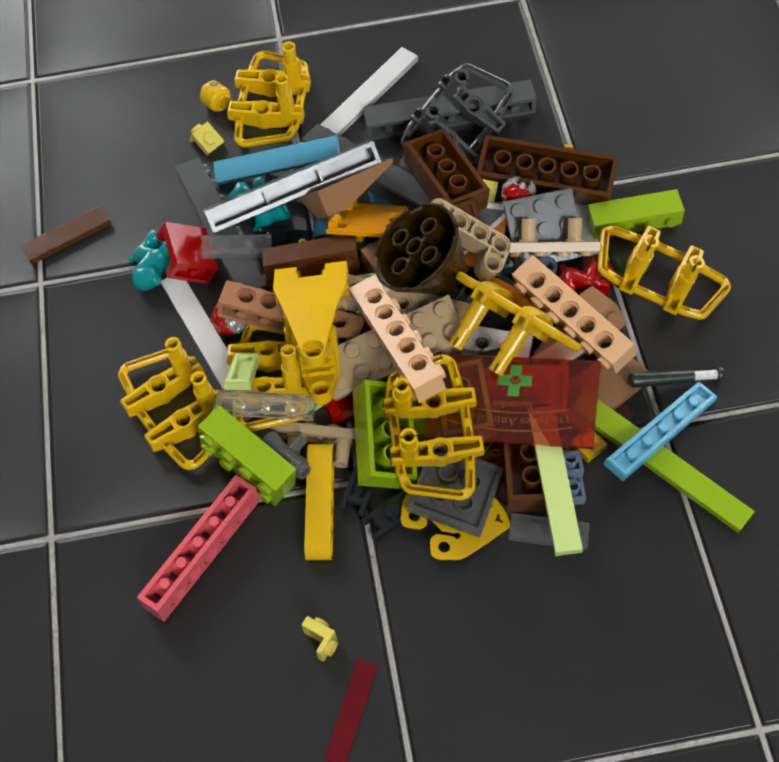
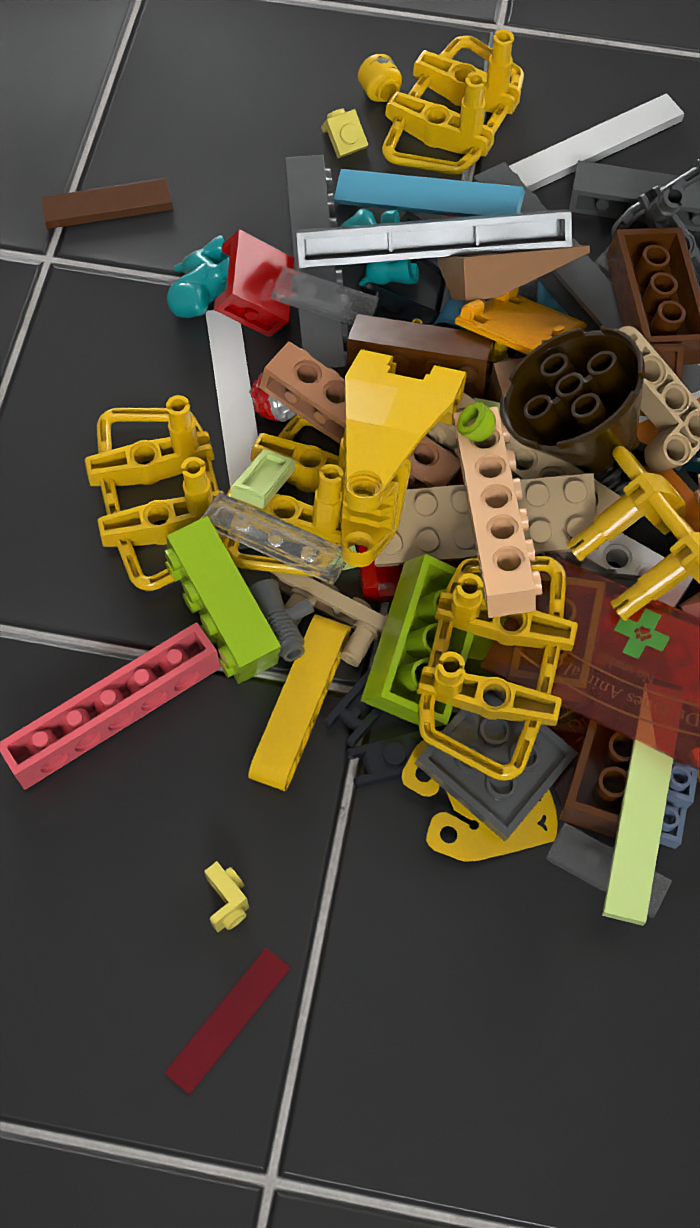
camera: 15 degrees right, 5 degrees up
(370, 291) = (482, 427): none -> lime piece

